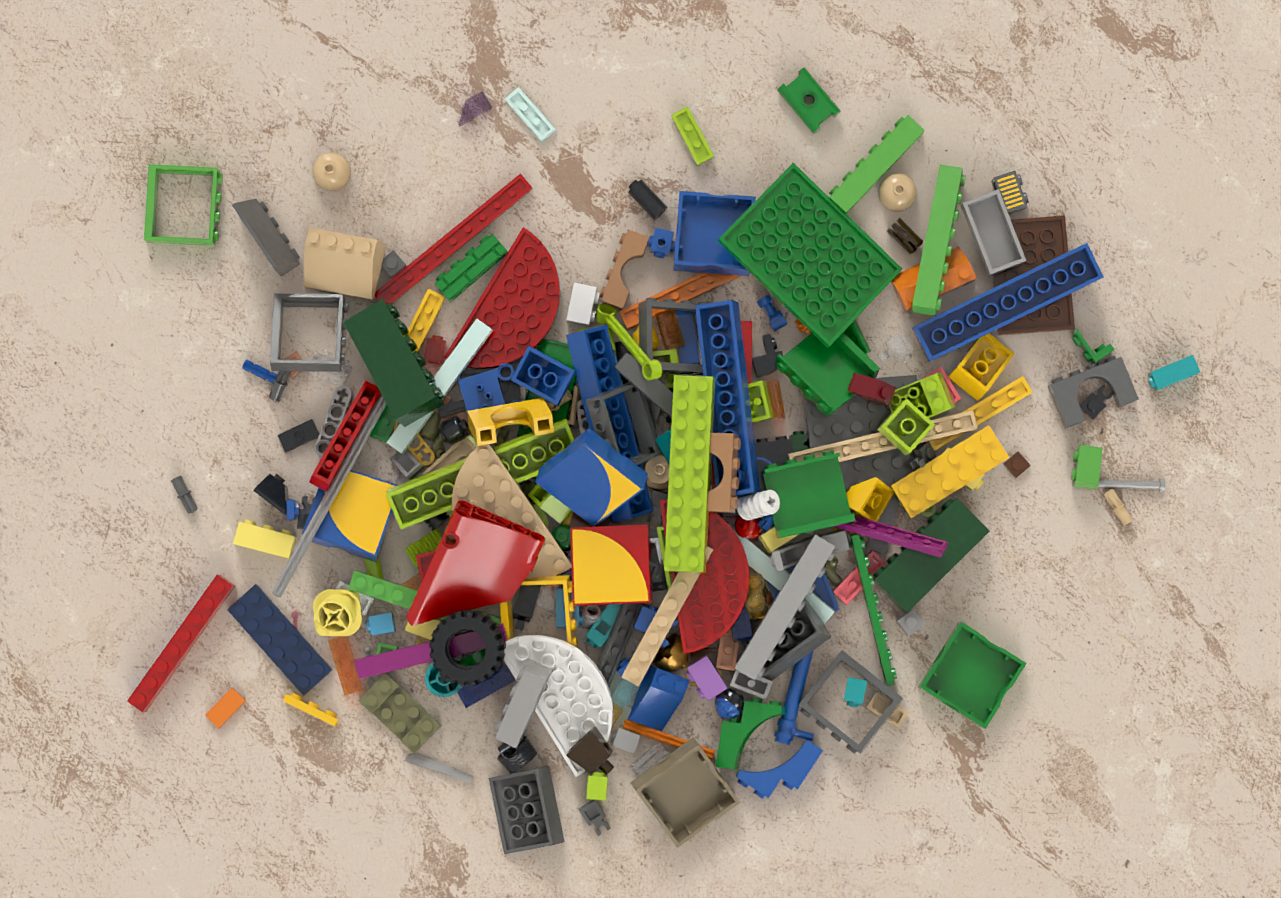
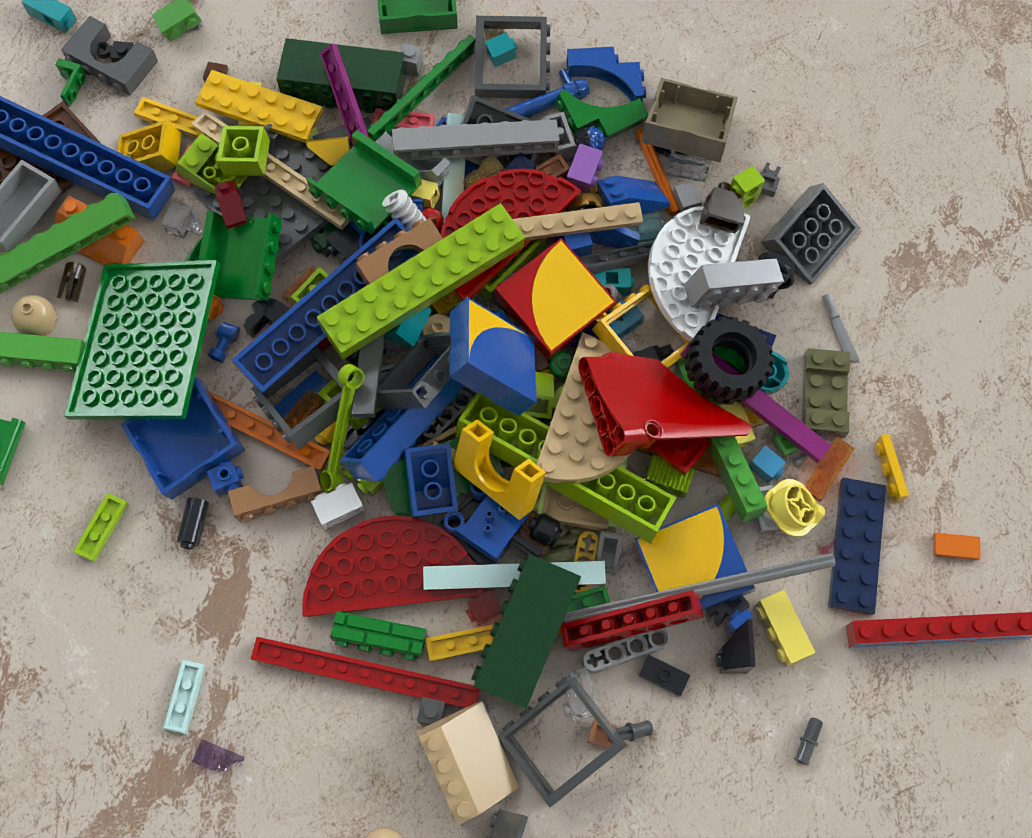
camera: 130 degrees left, 15 degrees down
(259, 371) = (635, 763): blue axle -> none

